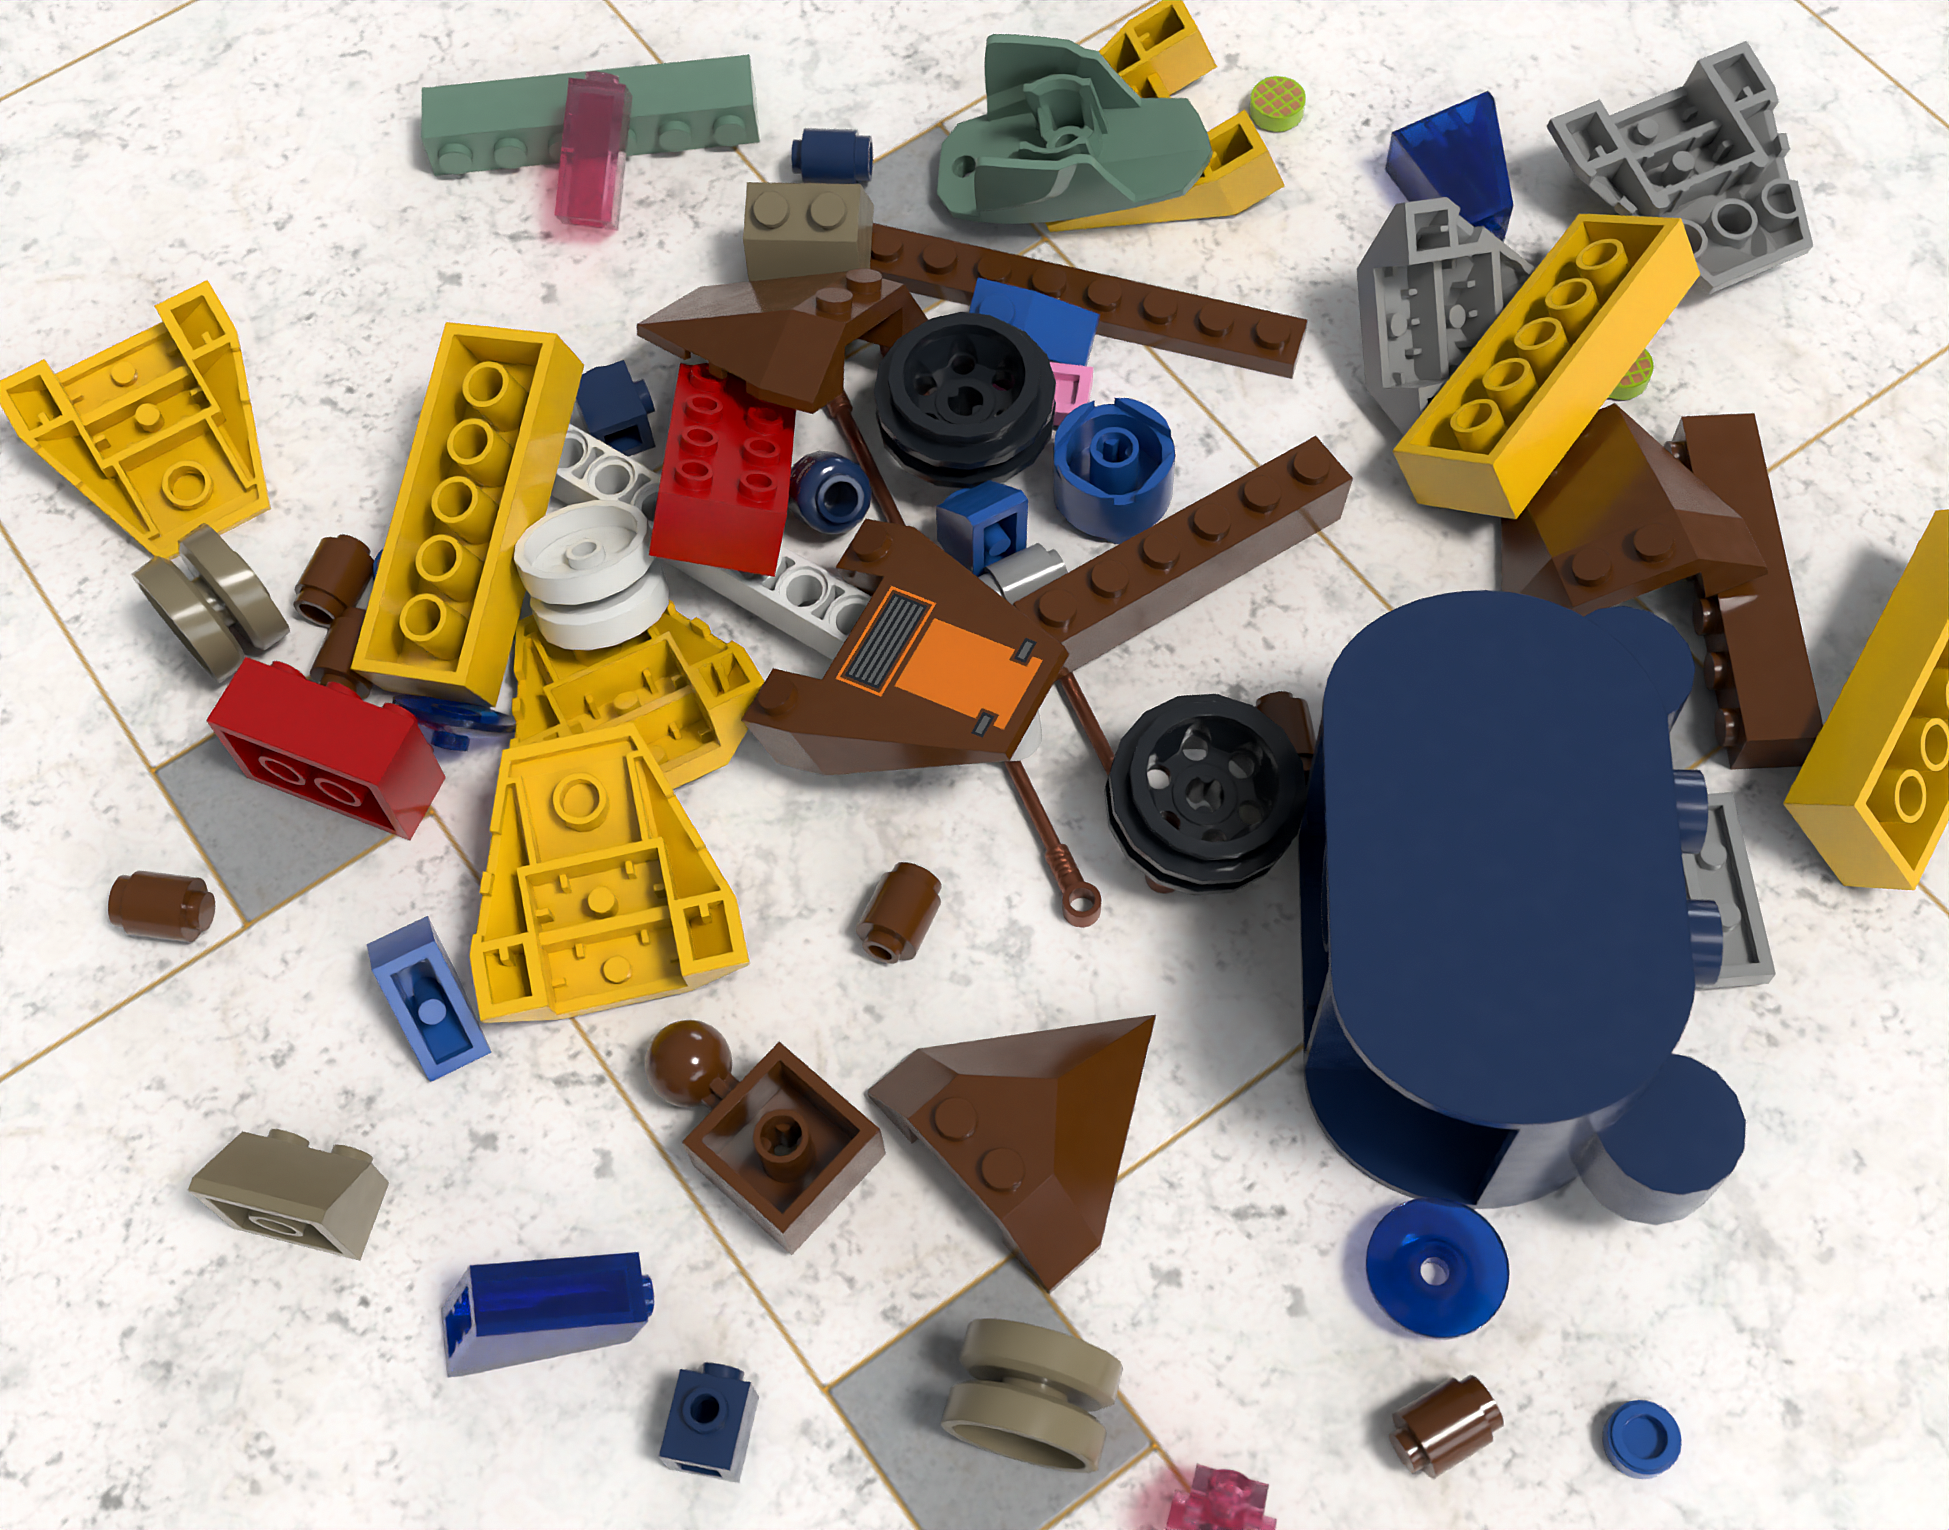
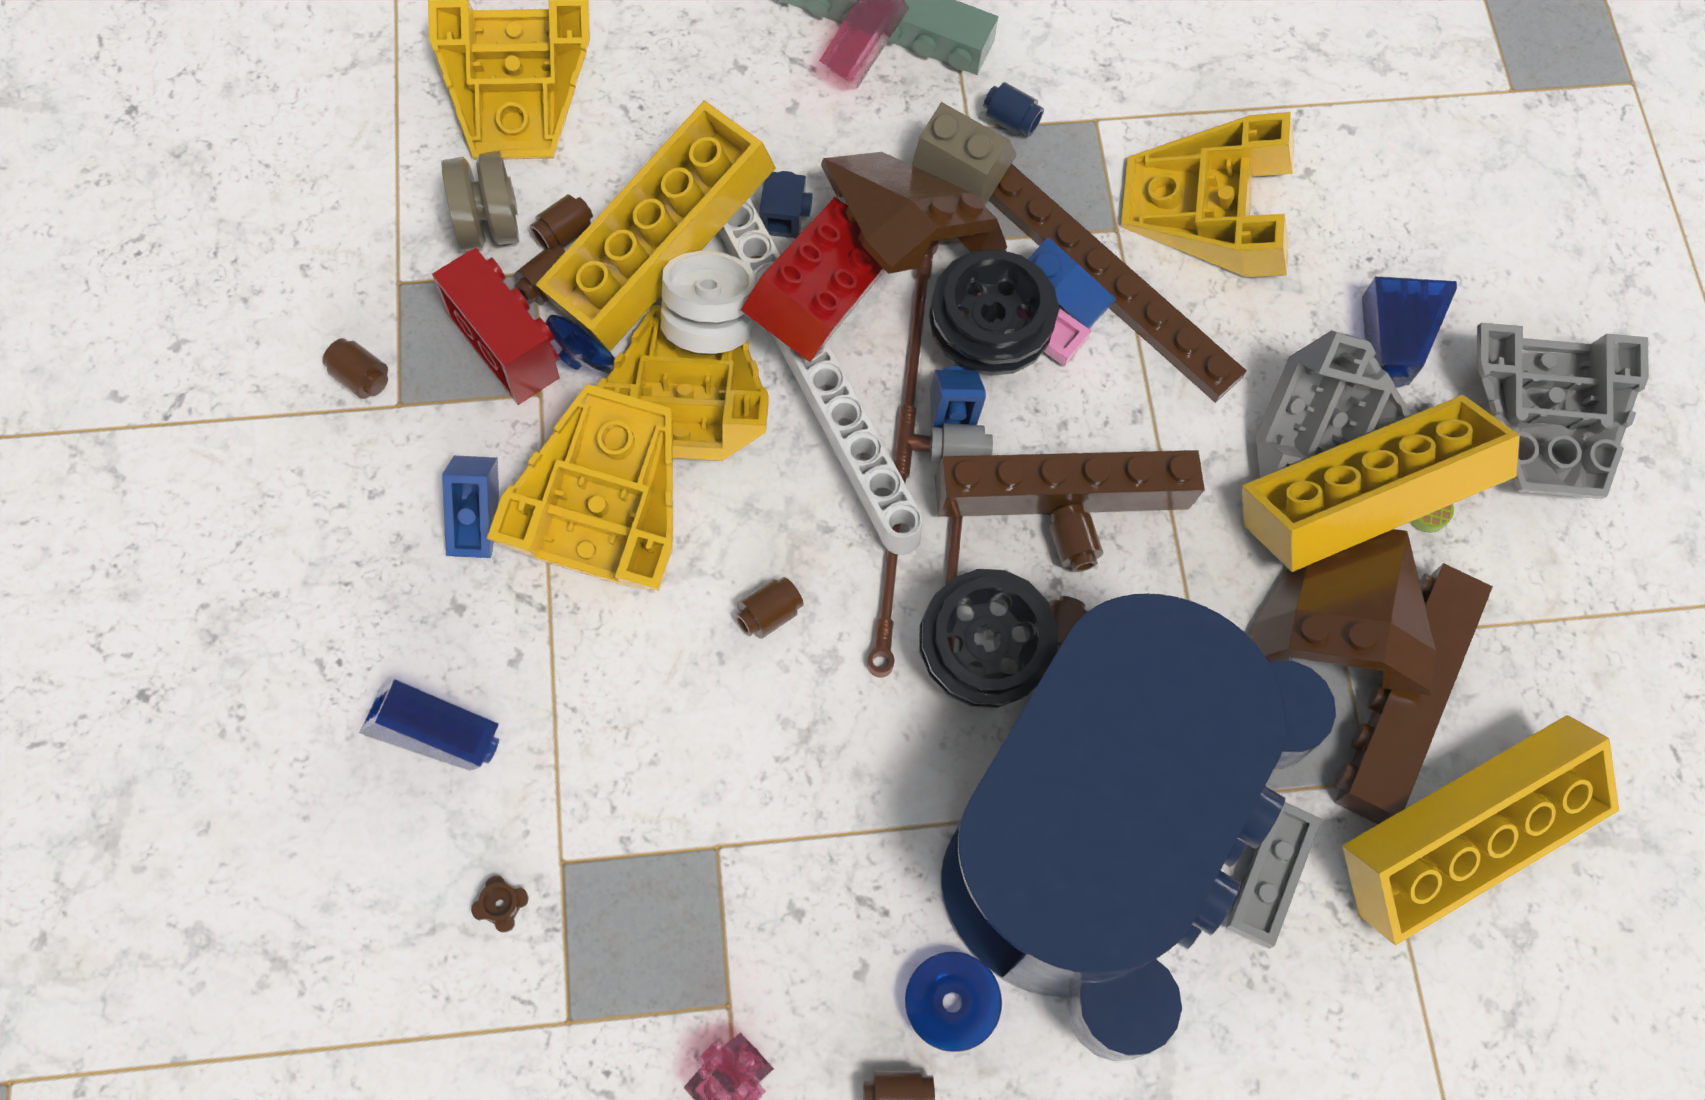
camera: 20 degrees right, 5 degrees up
(294, 1191) = (333, 577): dark tan slope -> none
(710, 1422) = (484, 844): dark blue brick -> none
(748, 1118) = (610, 681): reddish brown brick -> none
(761, 1474) = (496, 890): none -> reddish brown plate
(829, 492) = (880, 324): dark blue head -> none
(925, 676) = (864, 472): reddish brown wedge -> none
(1029, 1129) = (767, 779): reddish brown wedge -> none
(1032, 1395) = (673, 932): dark tan wheel -> none
(1066, 139) = (1167, 175): sand green piece -> none
(1113, 468) = (1062, 402): blue brick -> none
(1229, 622) = (1075, 538): none -> reddish brown brick
(1277, 103) = (1318, 217): lime tile -> none

